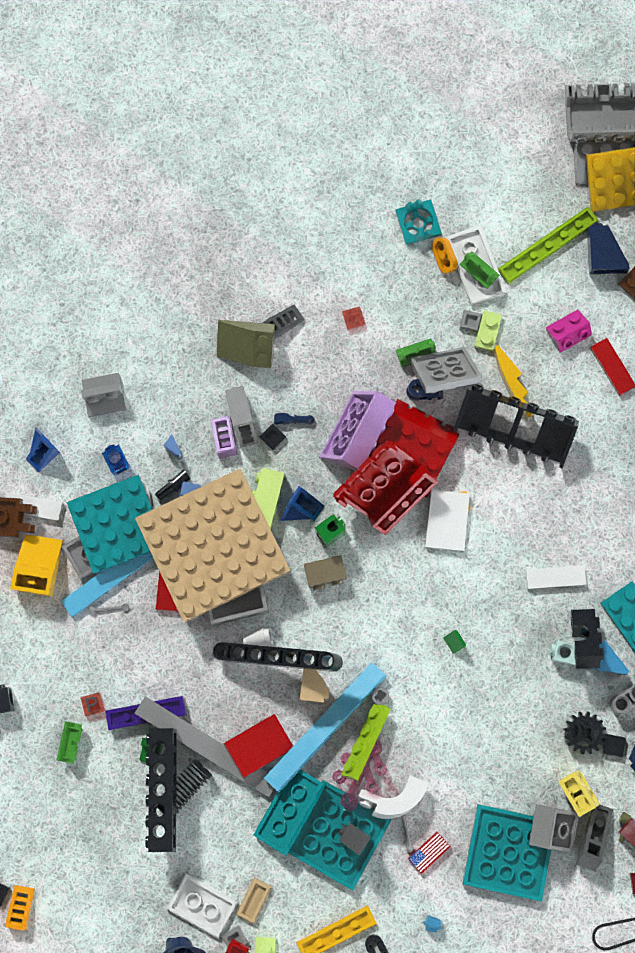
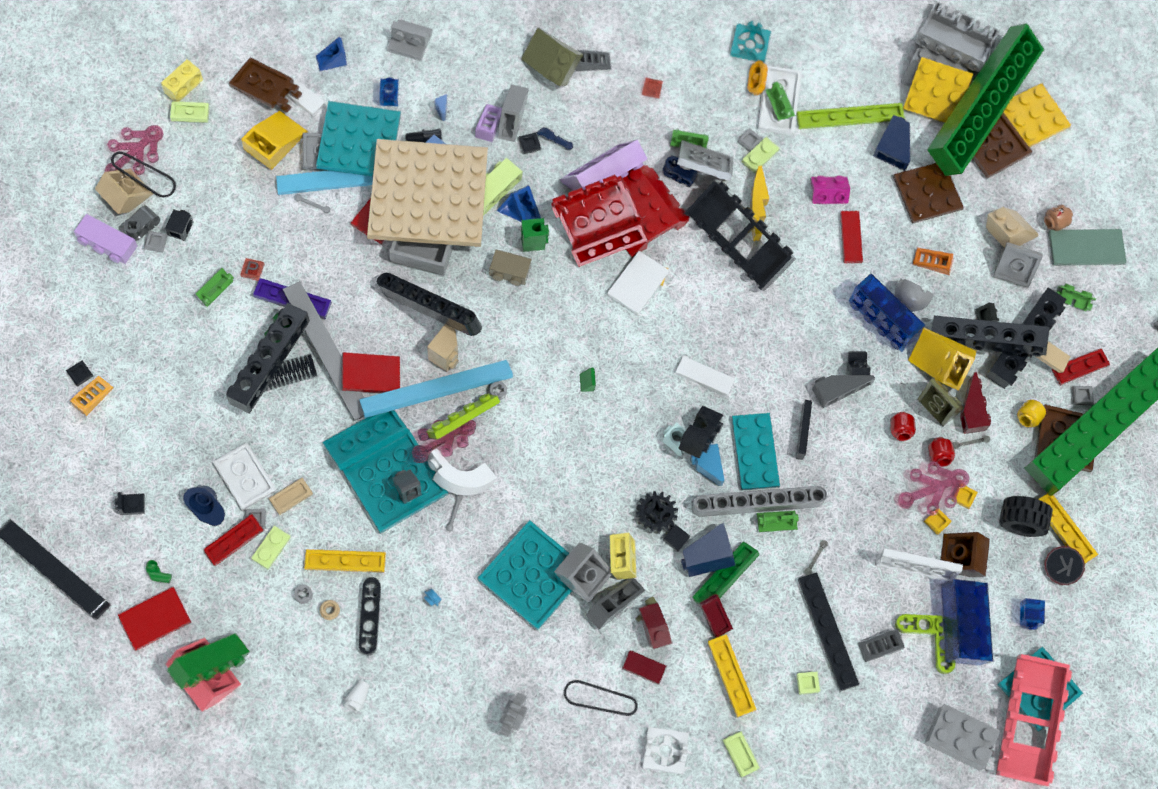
camera: 15 degrees right, 10 degrees down
(429, 852) = (464, 538): tile -> none

